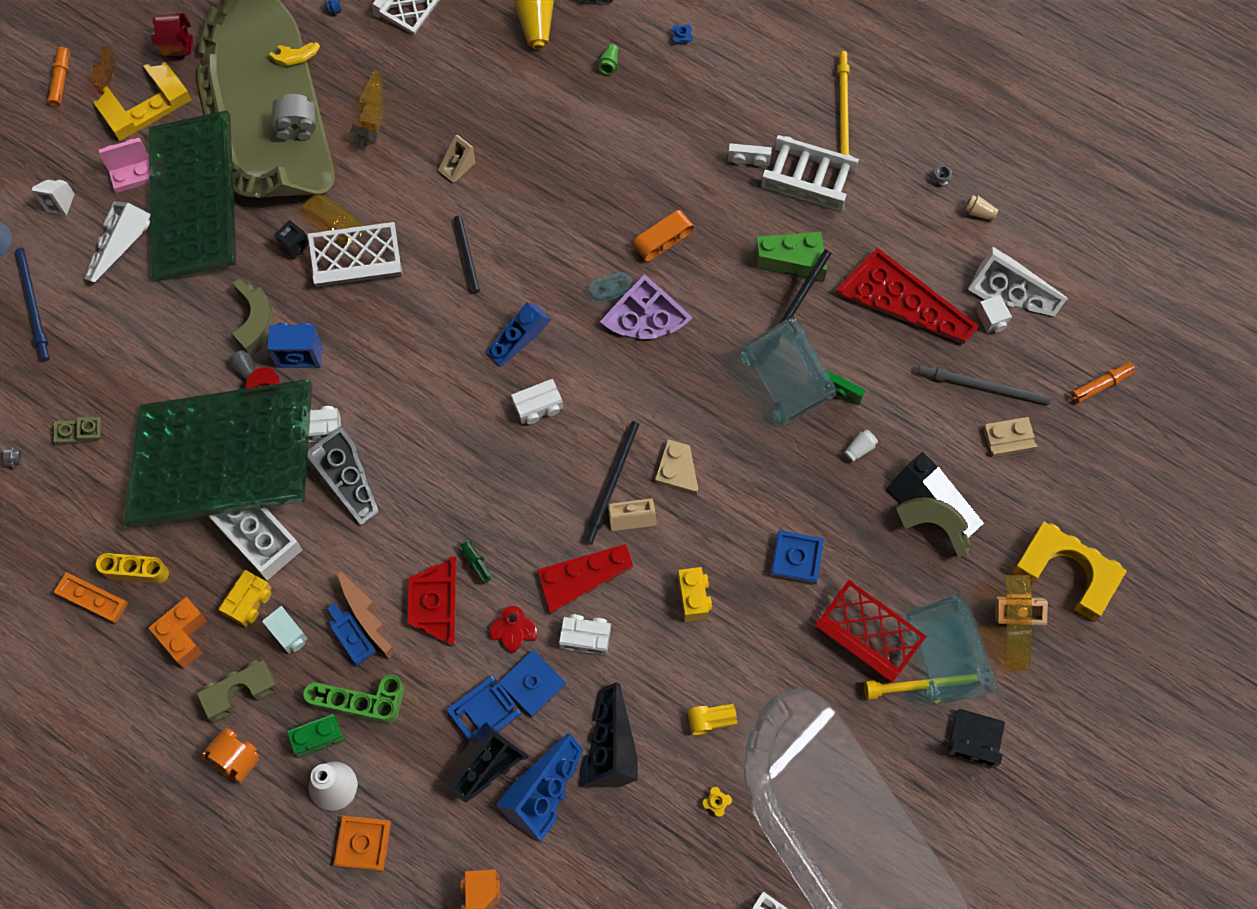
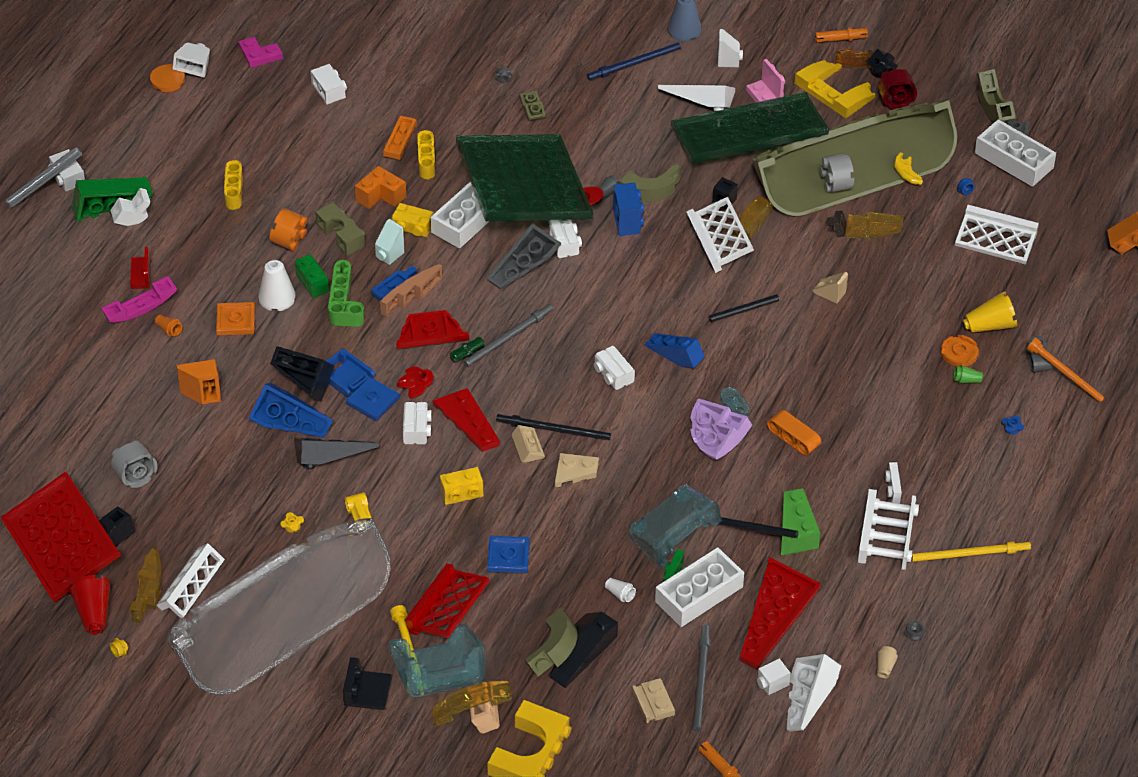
camera: 80 degrees right, 20 degrees down
(111, 822) = (233, 185): none -> yellow beam
(120, 49) = (881, 62): none -> black brick
(436, 477) = (535, 317): none -> dark grey bar
(570, 60) = (959, 350): none -> orange tile
(874, 363) = (699, 587): none -> white brick

